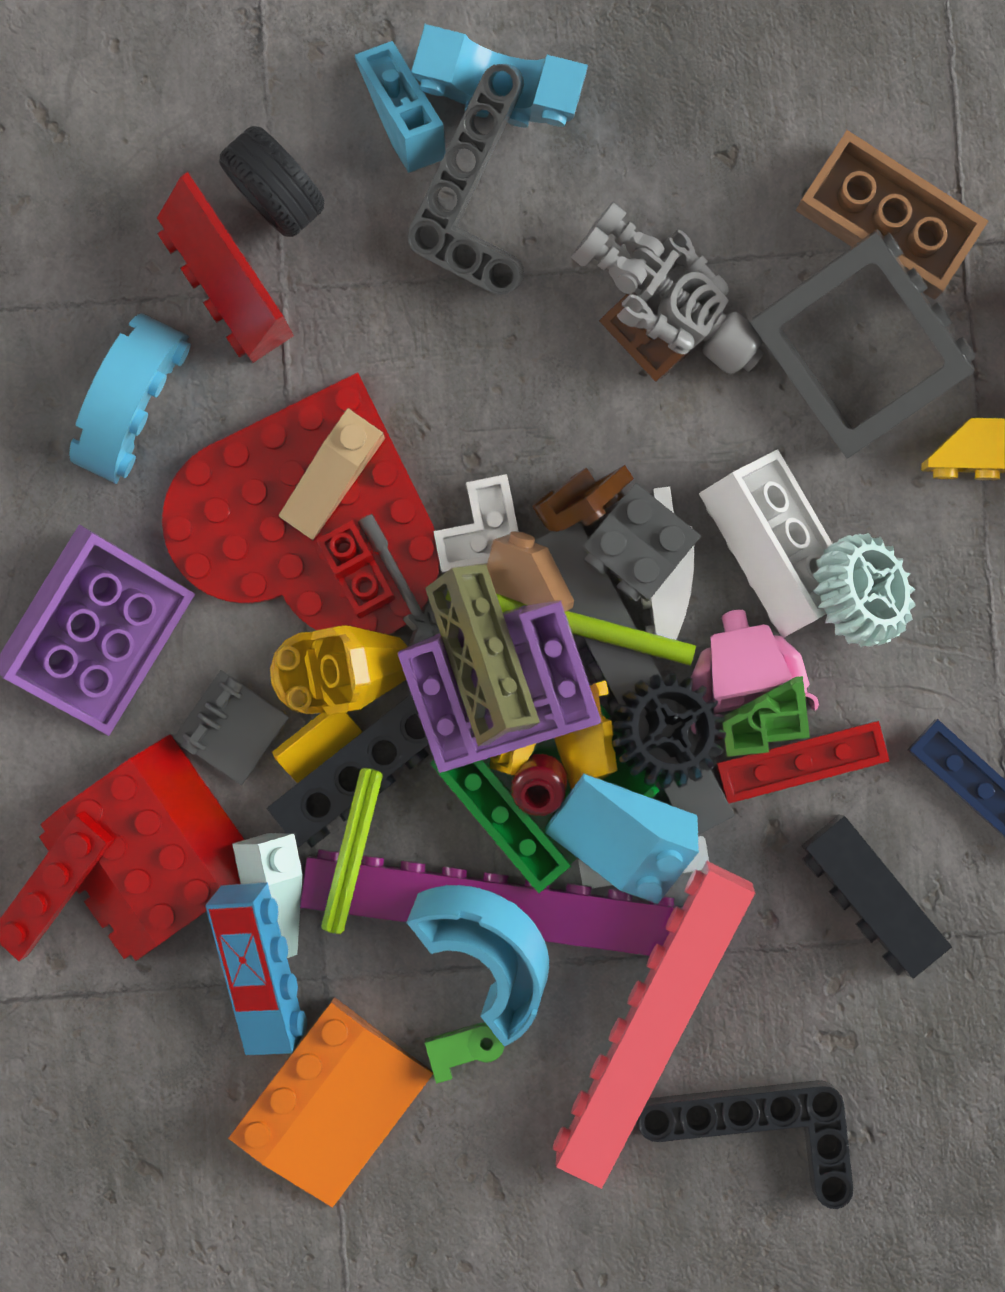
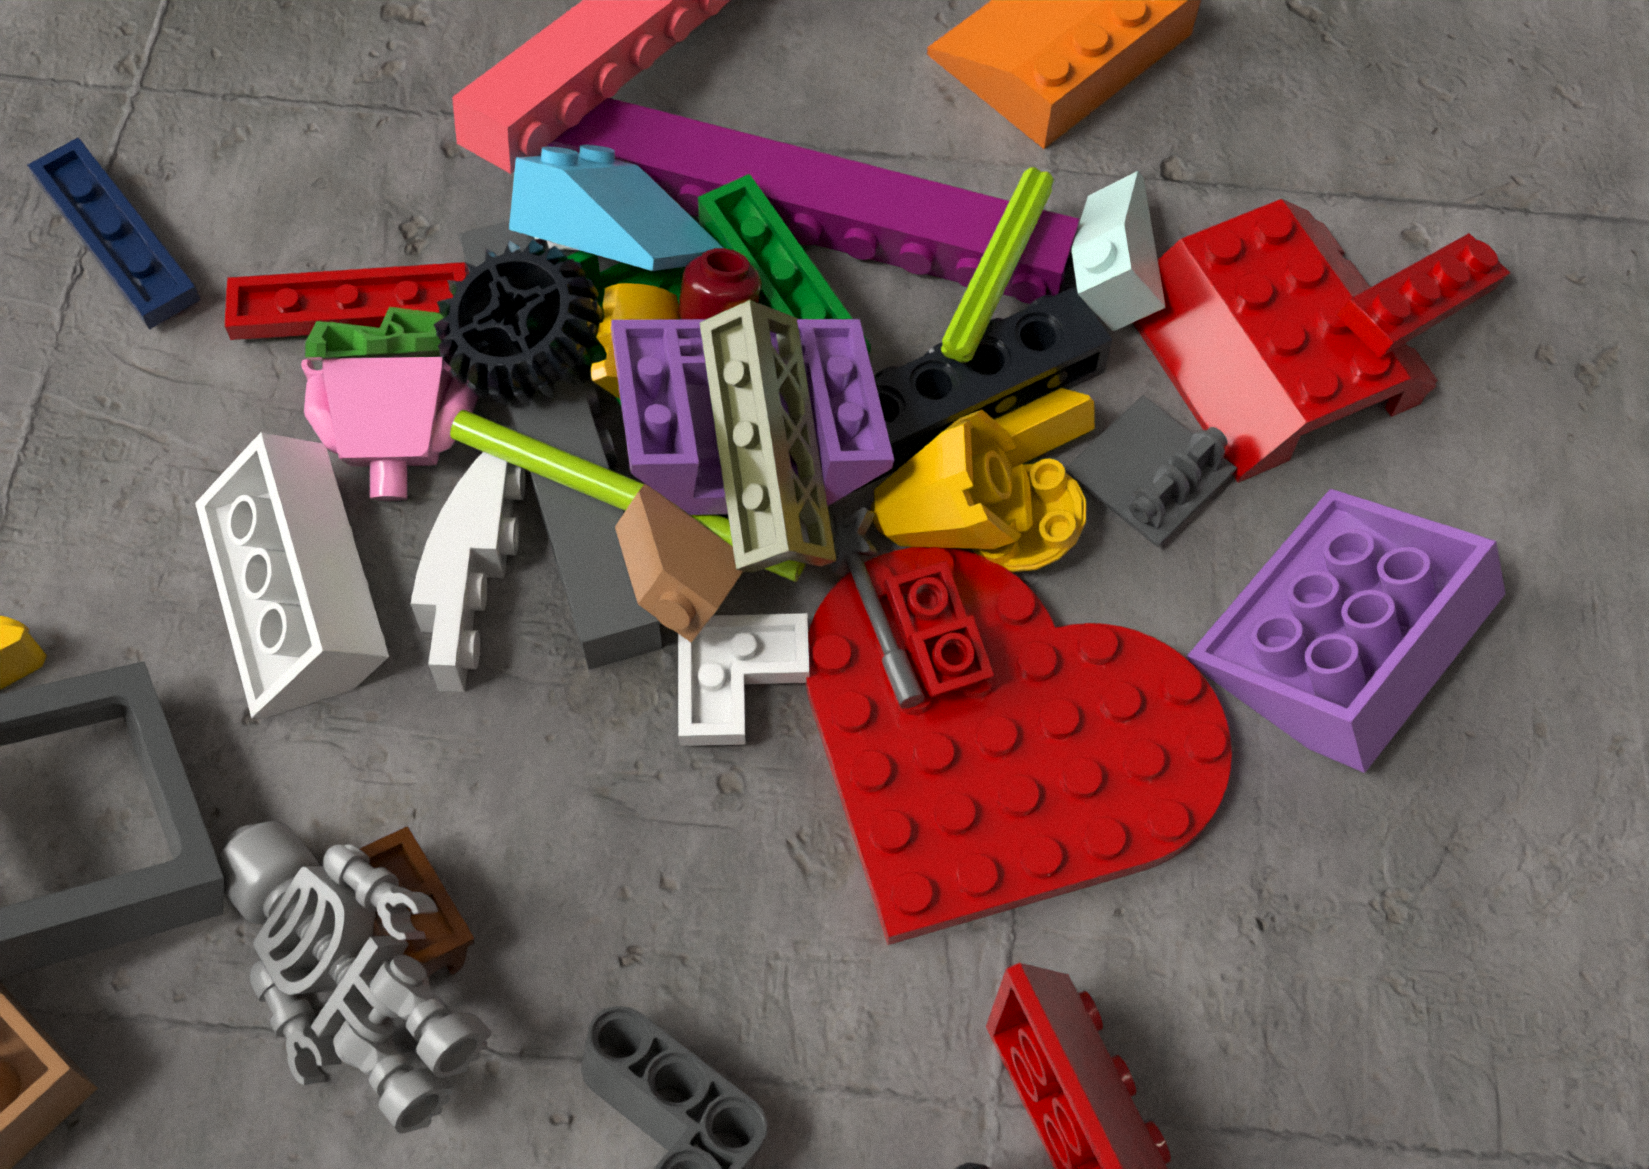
camera: 175 degrees left, 25 degrees down
(119, 394) = (1269, 965): medium azure brick -> none
(256, 968) = (1149, 151): dark azure brick -> none
(331, 473) = (948, 772): tan slope -> none
(461, 1047) = (883, 59): bright green leg -> none
(497, 935) = (834, 130): medium azure brick -> none
(581, 499) = (570, 667): reddish brown slope -> none
(639, 544) = (496, 579): dark grey plate -> none
(864, 590) = (182, 475): light aqua gear -> none
(875, 896) = (304, 137): black brick -> none

